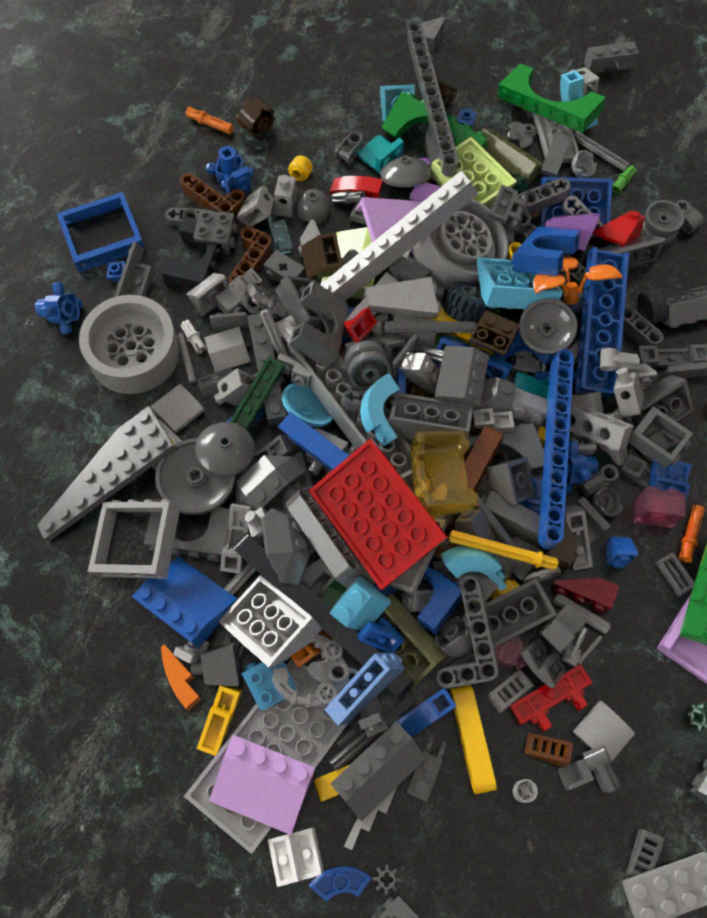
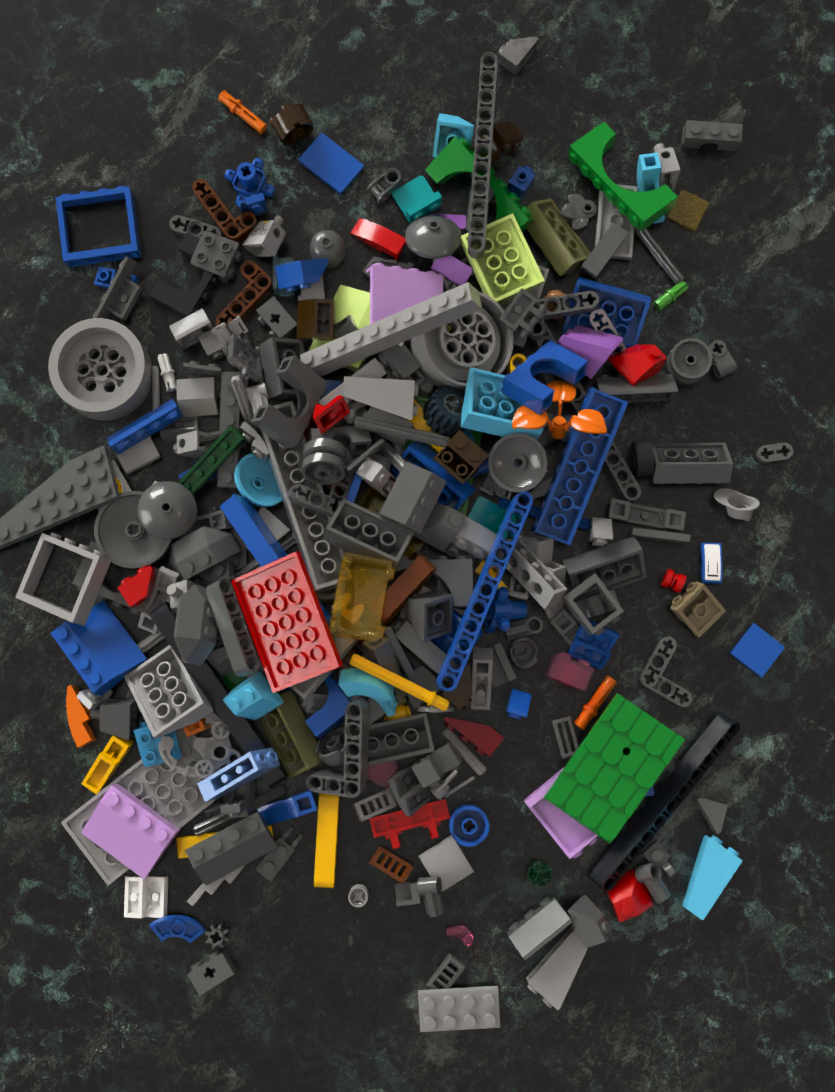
camera: 15 degrees right, 15 degrees up
(60, 307) = (38, 310): blue piece -> none
(184, 384) = (144, 427): none -> blue fence
(213, 528) = (139, 587): none -> red slope
(285, 189) = (300, 228): light grey torso -> none
(296, 223) = (300, 273): none -> blue slope
(297, 142) = (331, 163): none -> blue tile
(300, 168) = (325, 199): yellow head -> none
(348, 197) = (366, 248): dark grey axle -> none
(372, 409) = (315, 508): medium azure arch -> none
(381, 636) = (267, 729): blue slope -> none
(499, 421) = (432, 548): light grey slope -> none
(521, 183) = (551, 279): clear green gear -> none
(583, 164) = (631, 269): light grey hair -> none
(612, 360) = (574, 513): light grey piece -> none
(613, 116) = (688, 210): none -> clear yellow piece
(619, 673) = (460, 833): none -> blue brick
(628, 393) = (578, 551): light grey torso -> none
(645, 803) = (462, 932): none -> clear pink arm

